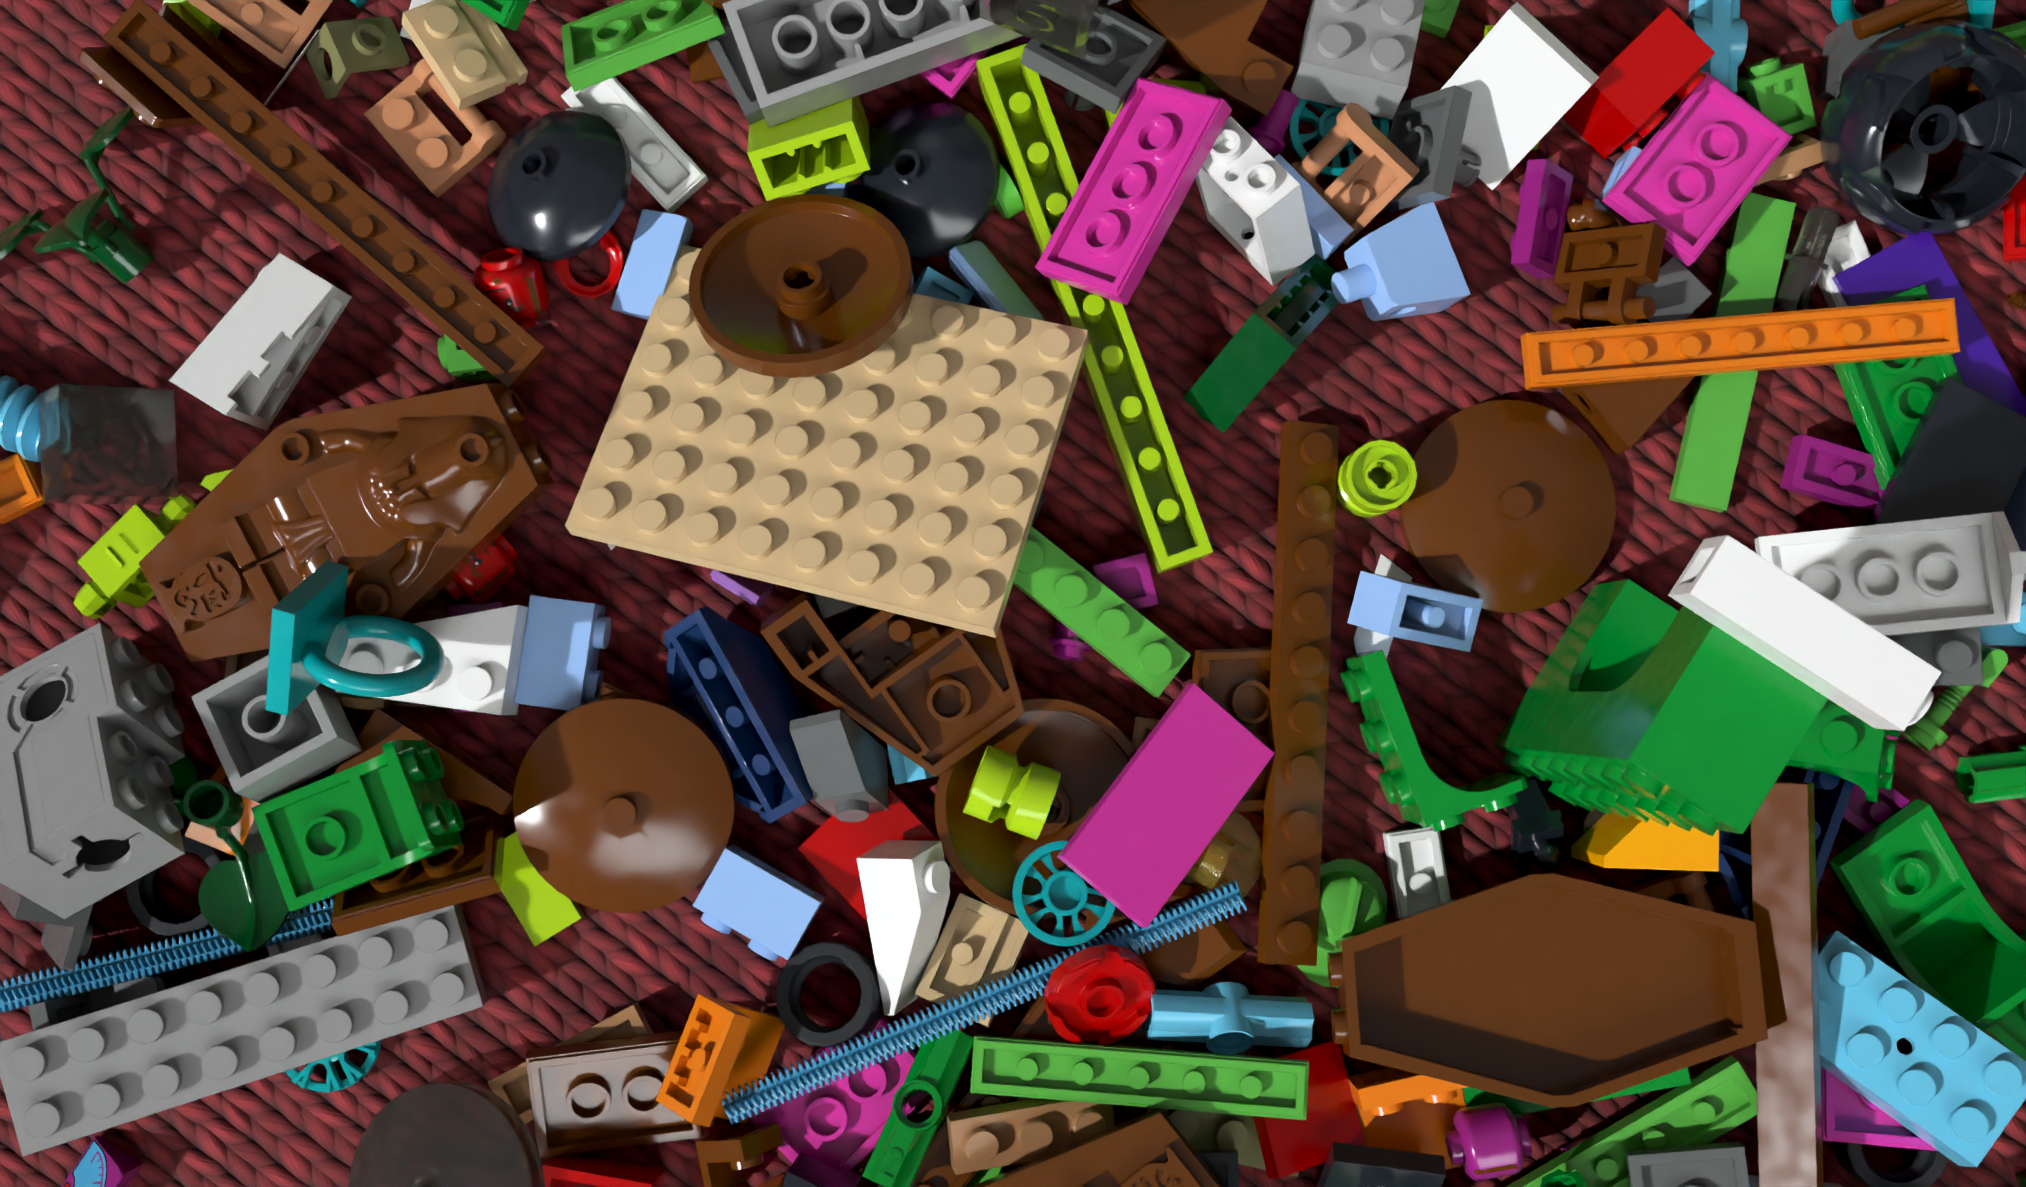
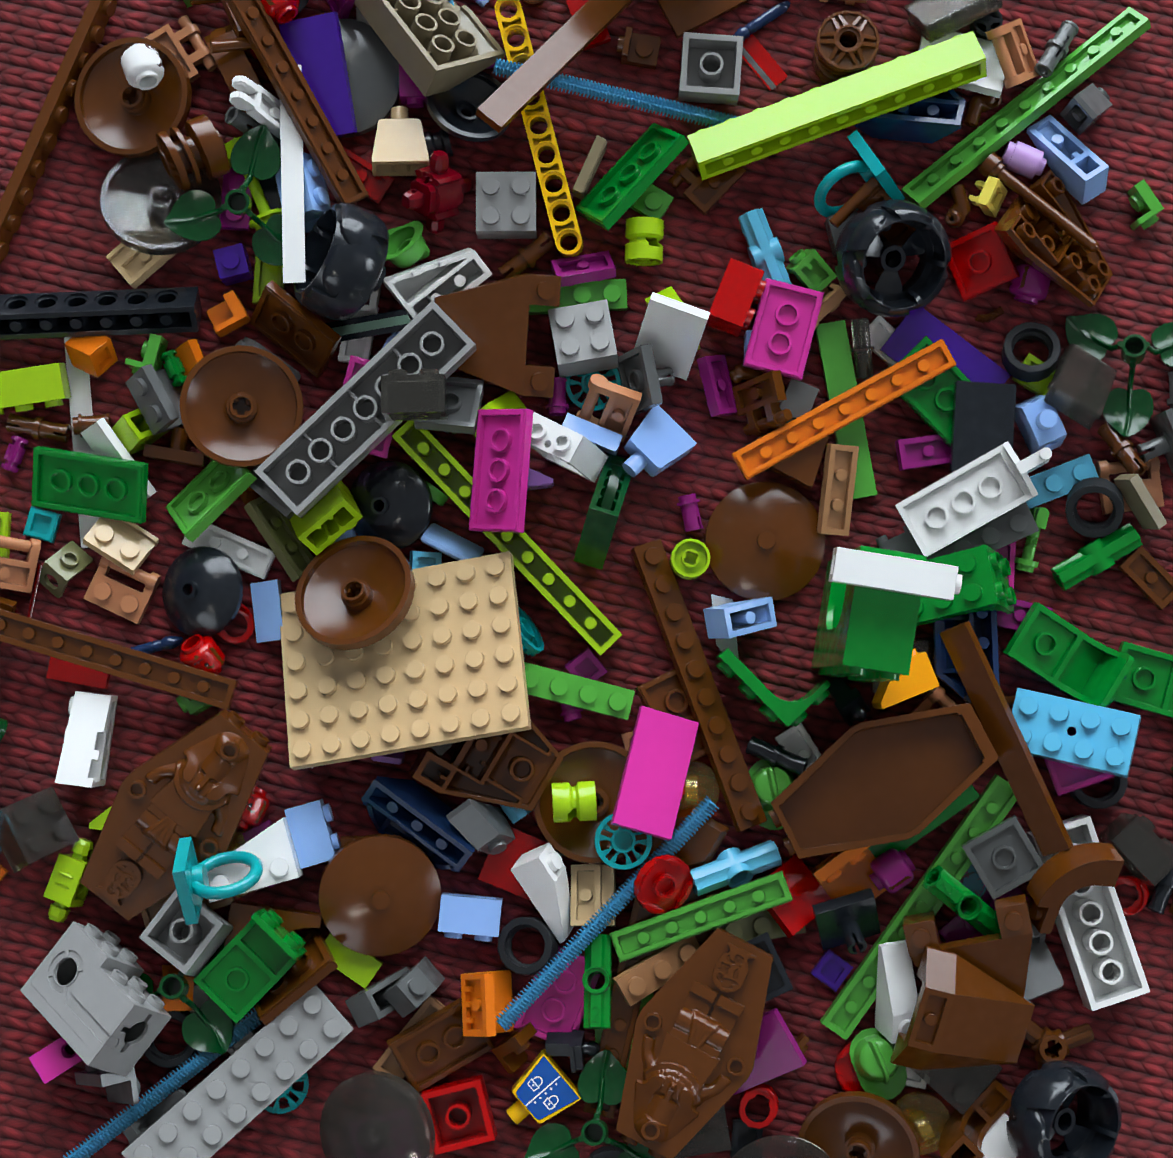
camera: 25 degrees left, 0 degrees up
(295, 227) = (77, 674): none -> red tile
(466, 245) = (166, 643): none -> dark blue piece
(556, 973) = (370, 1003): none -> dark grey slope
(614, 981) = (414, 987): none -> dark grey slope
(722, 148) = (280, 537): none -> olive plate
(1058, 492) = (531, 637): none -> teal wheel
(1182, 245) = (538, 480): none -> medium lavender slope
(1377, 865) = (777, 756): none -> black pin
(1406, 405) = (690, 512): none -> magenta pin
(1669, 471) = (837, 489): none -> medium nougat plate

